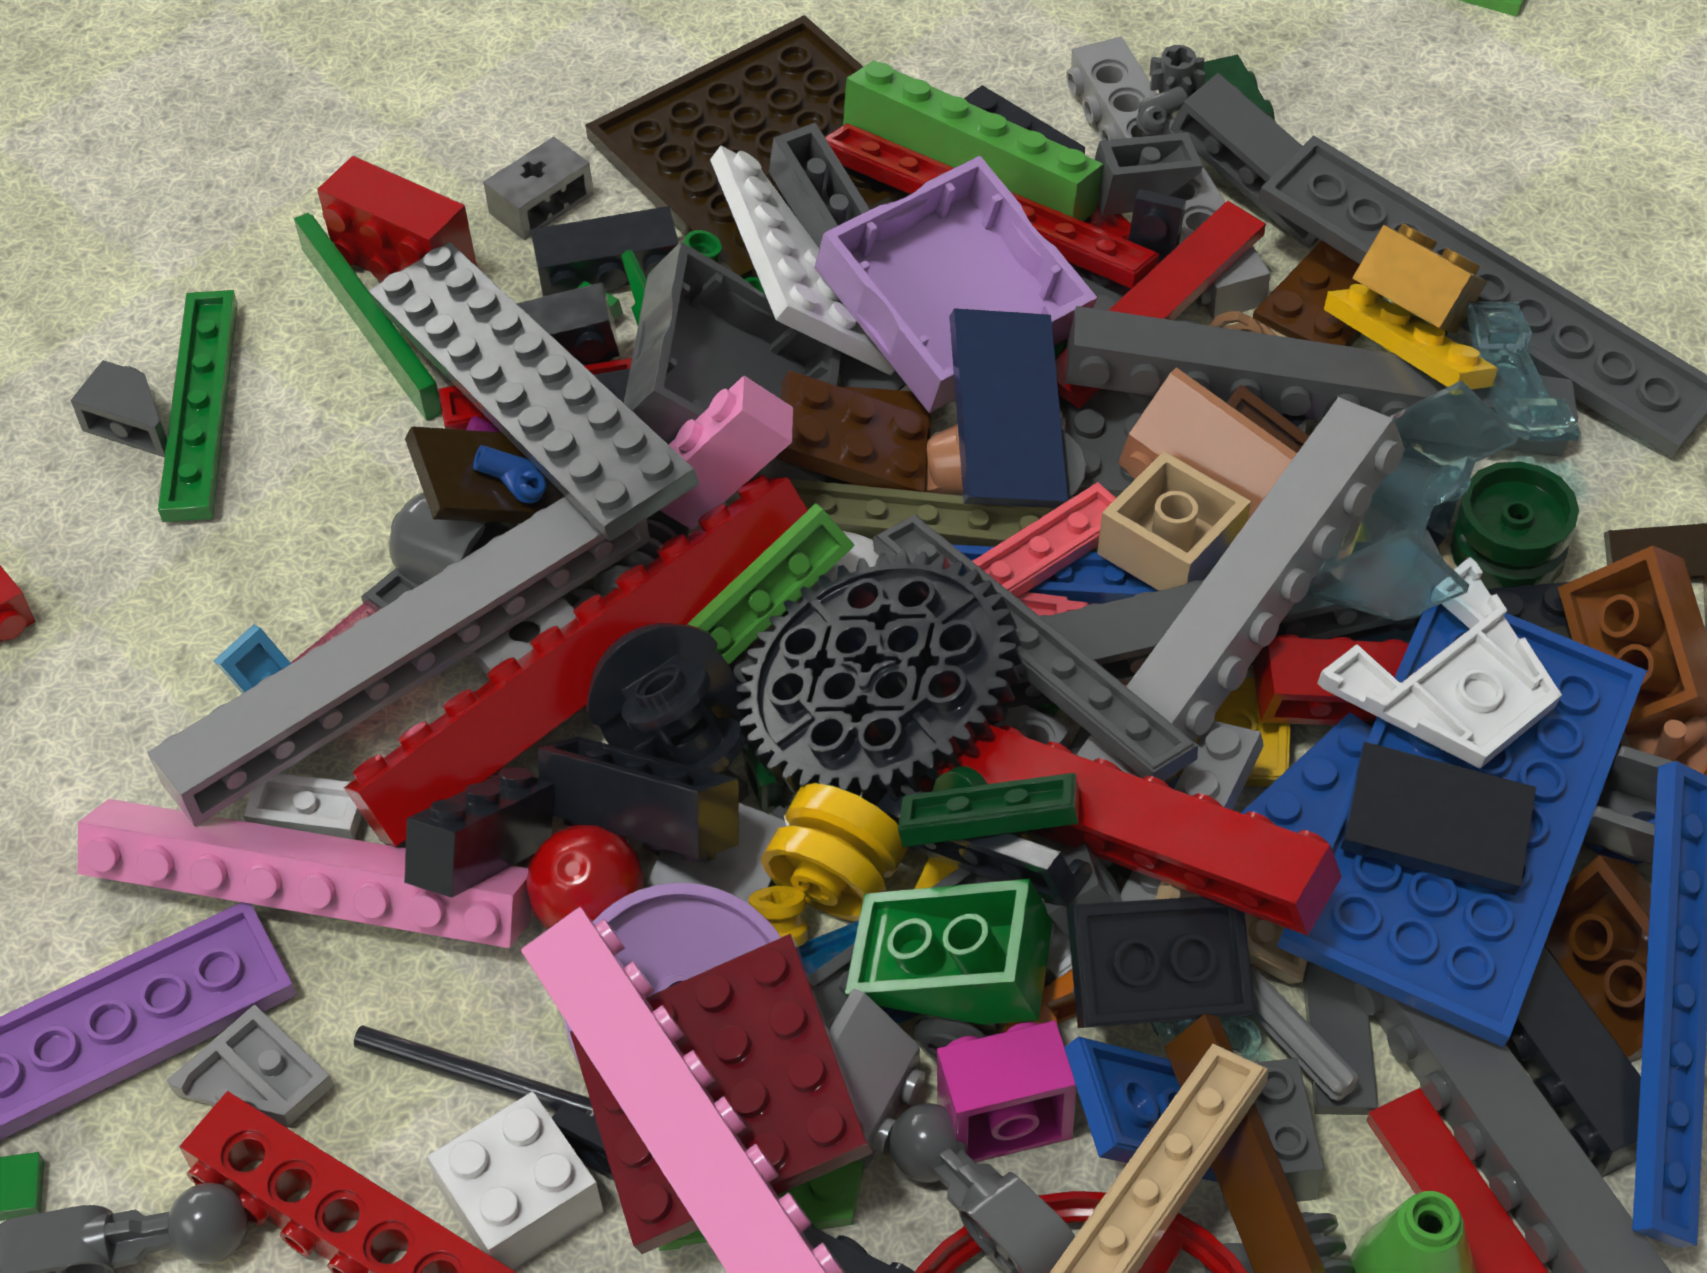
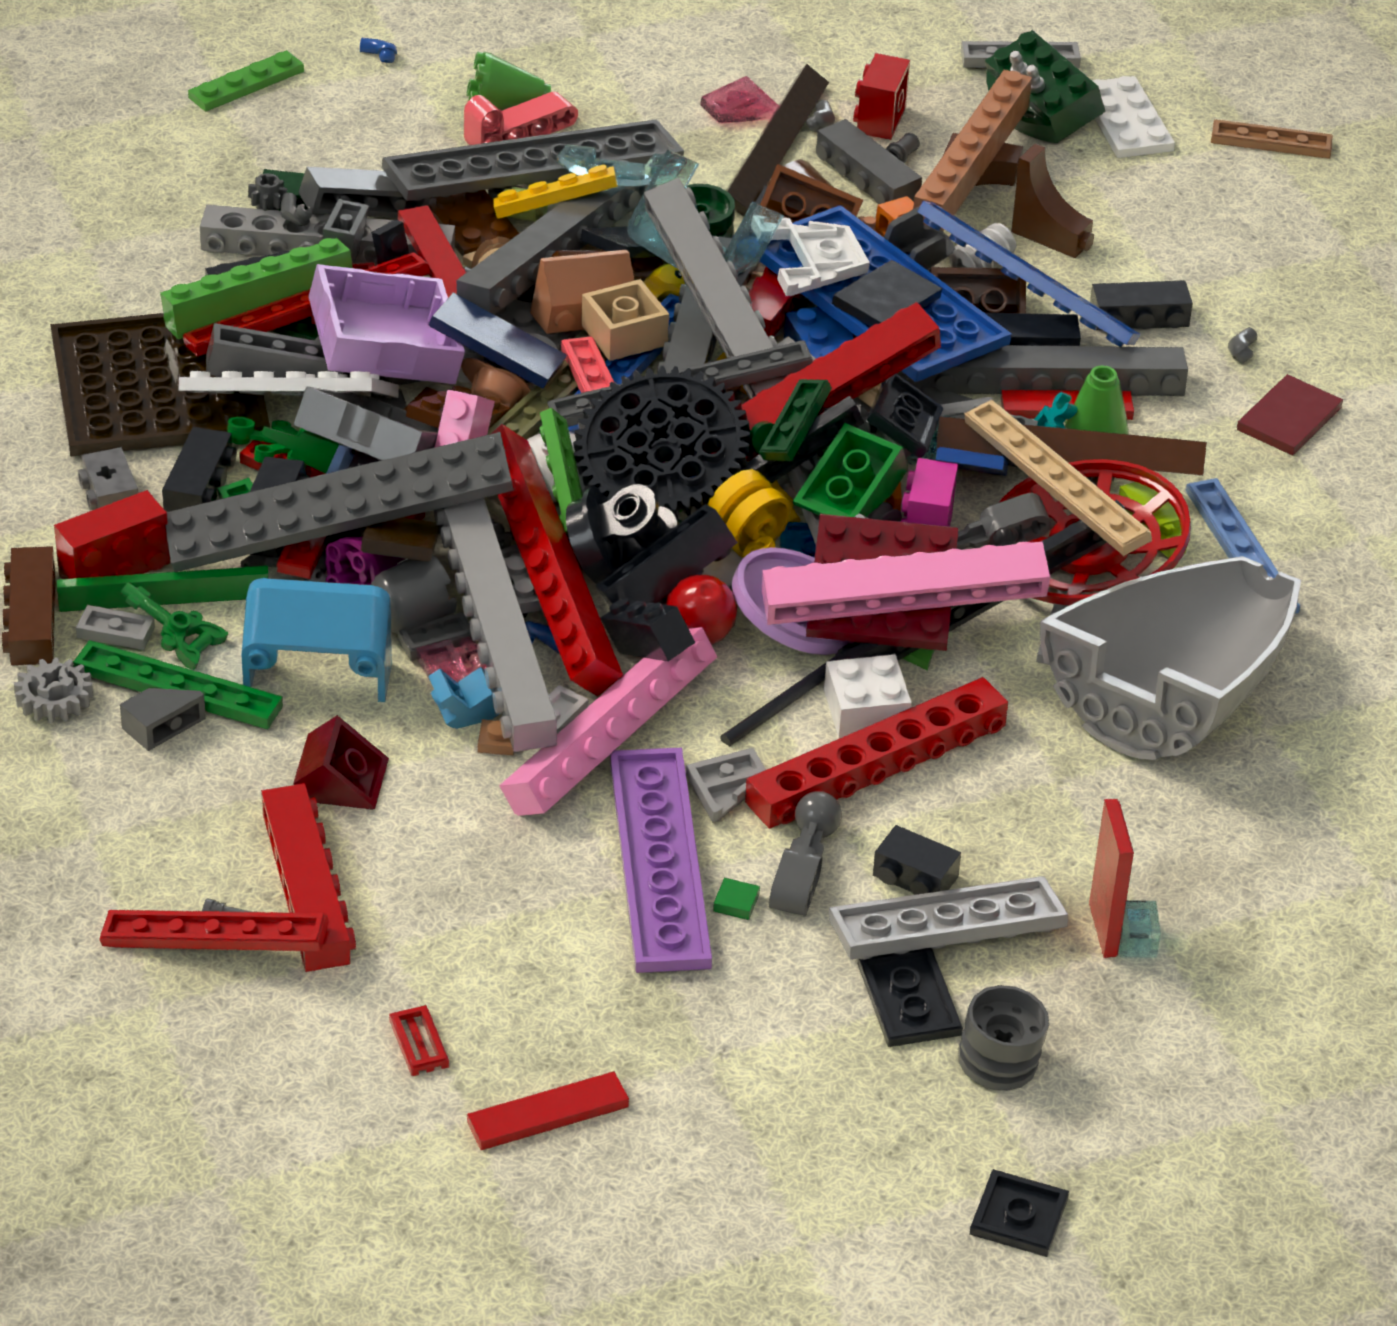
camera: 70 degrees left, 10 degrees down
(97, 624) = (341, 766): none -> dark red slope
(133, 299) = (53, 690): none -> light grey gear
(254, 222) = (30, 605): none -> reddish brown brick
(279, 305) = (115, 627): none -> light grey plate
(281, 494) = (319, 620): none -> dark azure windscreen
(296, 356) = (177, 627): none -> green piece
(515, 472) = (415, 524): blue arm -> none
(1361, 1194) = (1058, 413): none -> teal plate
(1420, 280) = (533, 160): pearl gold brick -> none
(1575, 248) = (532, 118): none -> coral beam
(1628, 58) = (376, 46): none -> blue arm
(1636, 198) = (504, 82): none -> bright green cone

